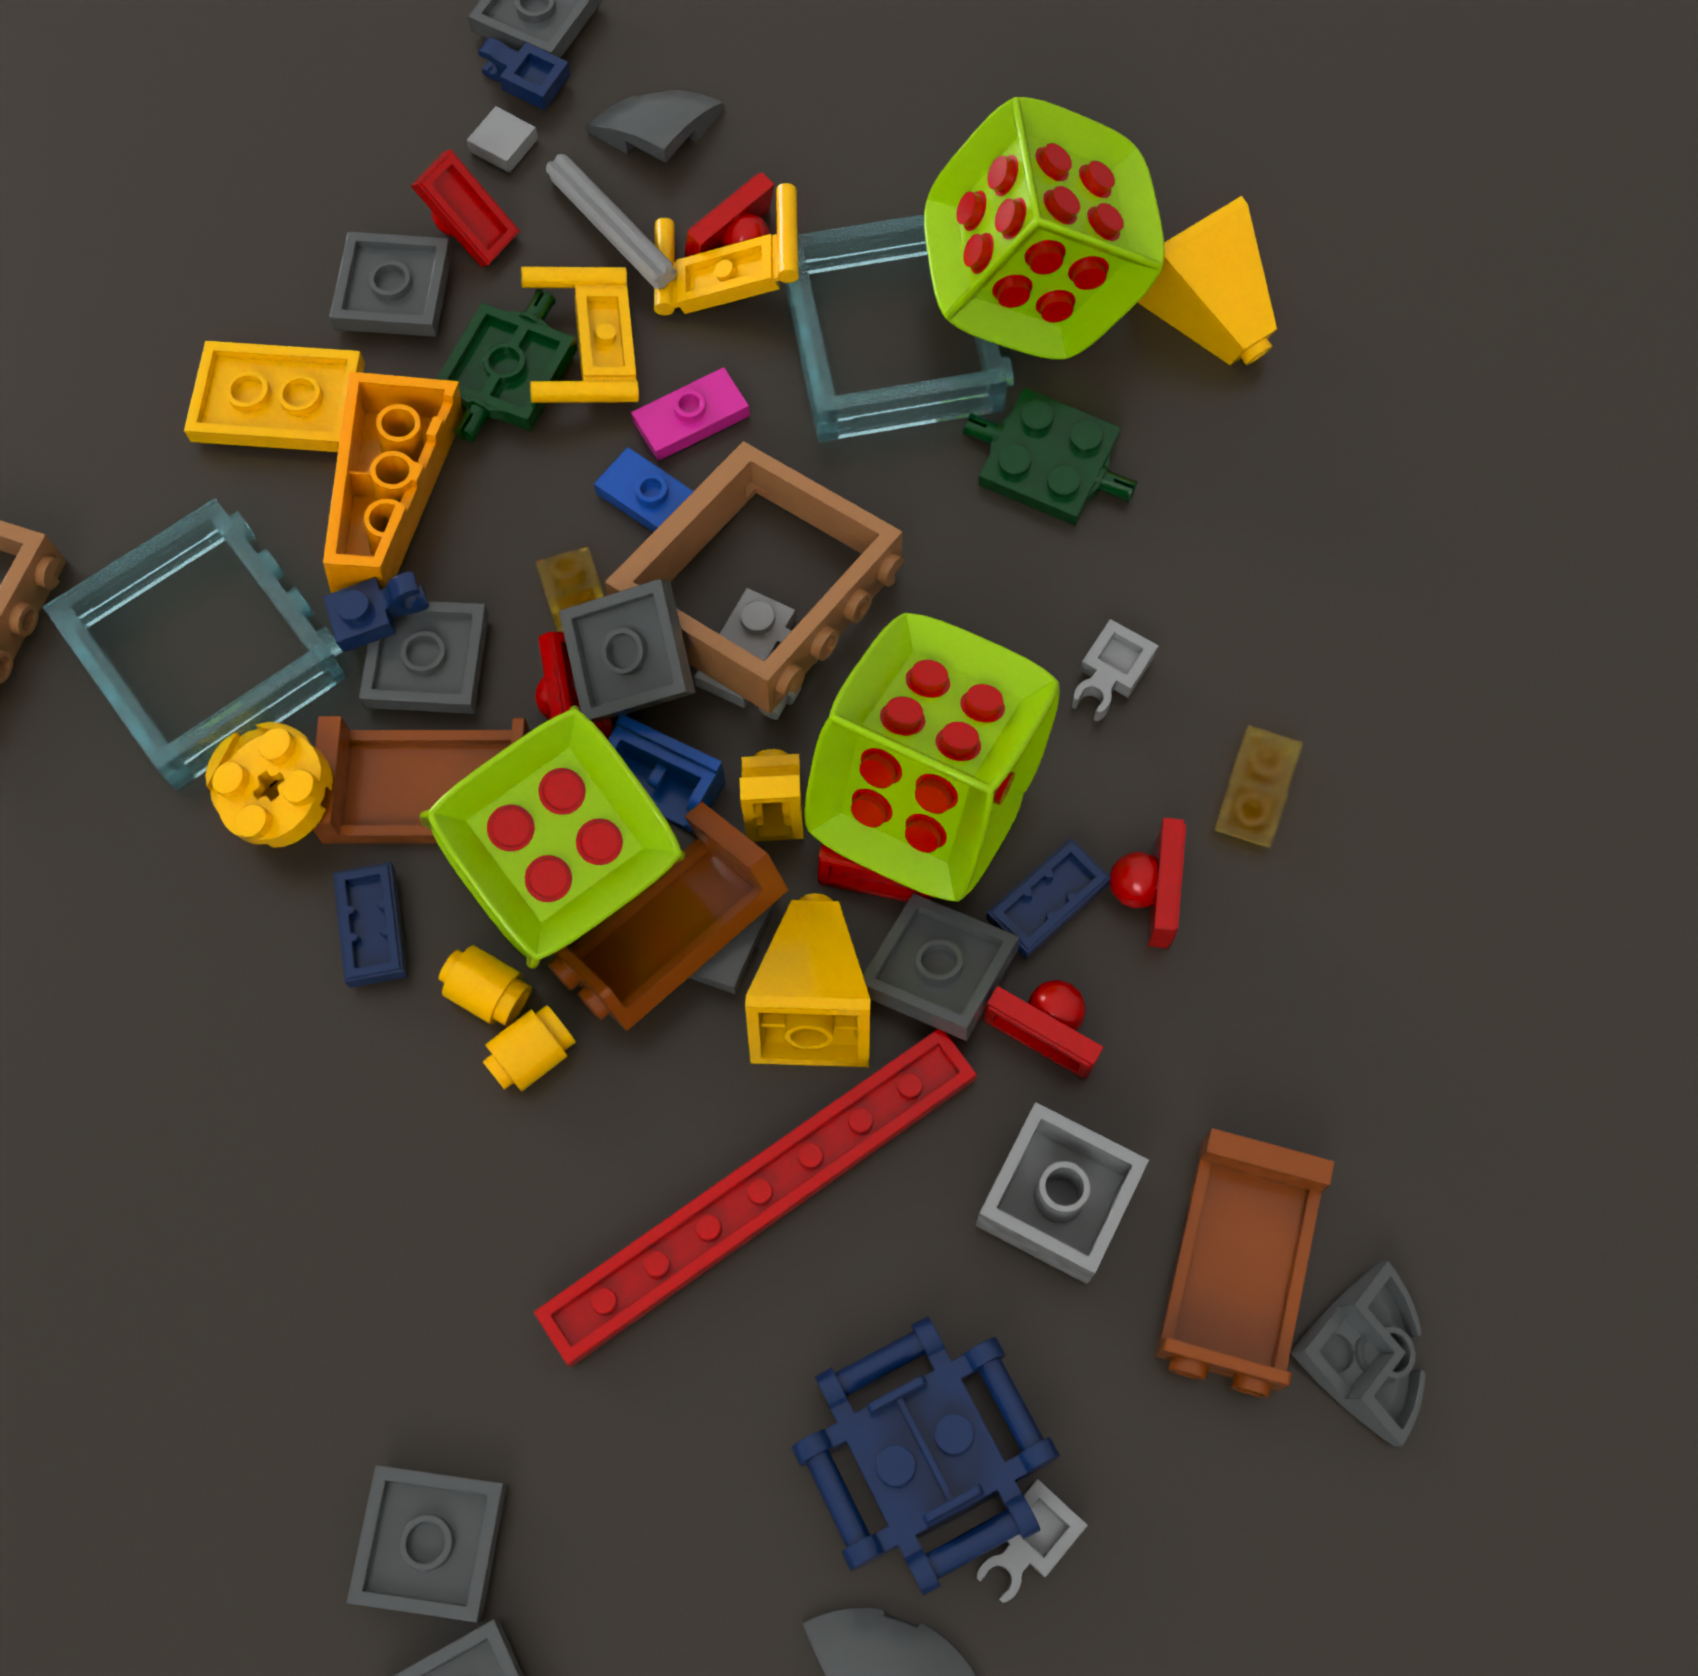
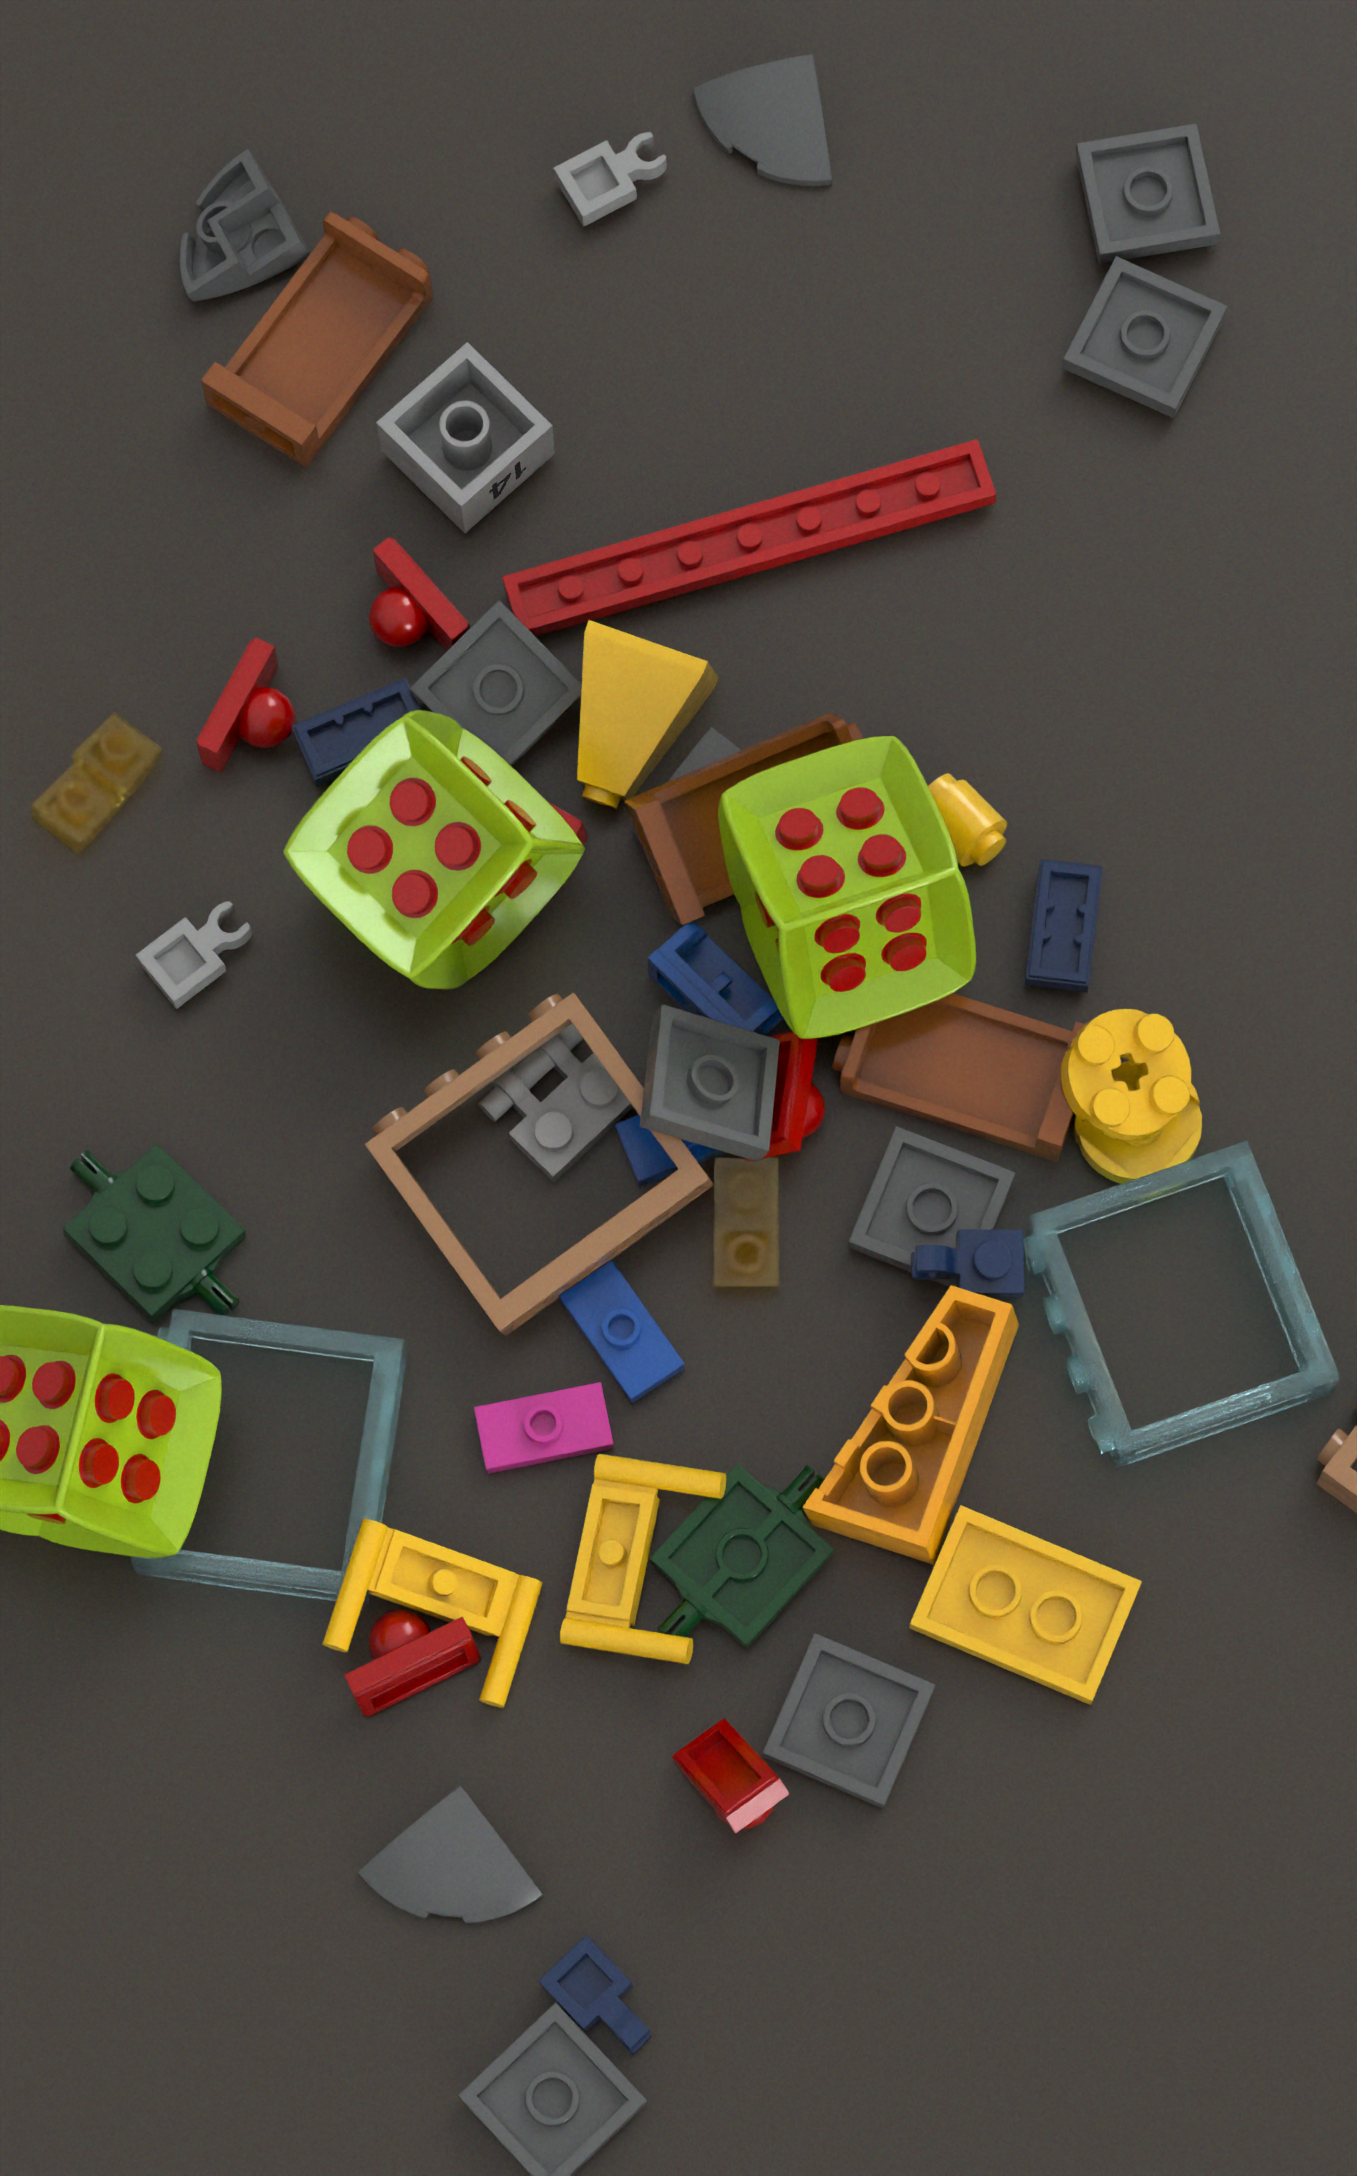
camera: 160 degrees left, 5 degrees up
(502, 139) = (655, 1907): light grey tile -> none
(528, 1048) = (941, 739): yellow brick -> none
(611, 221) = (558, 1717): light grey axle -> none
(772, 796) = (605, 914): yellow arch -> none
(925, 1455) = (675, 264): dark blue brick -> none

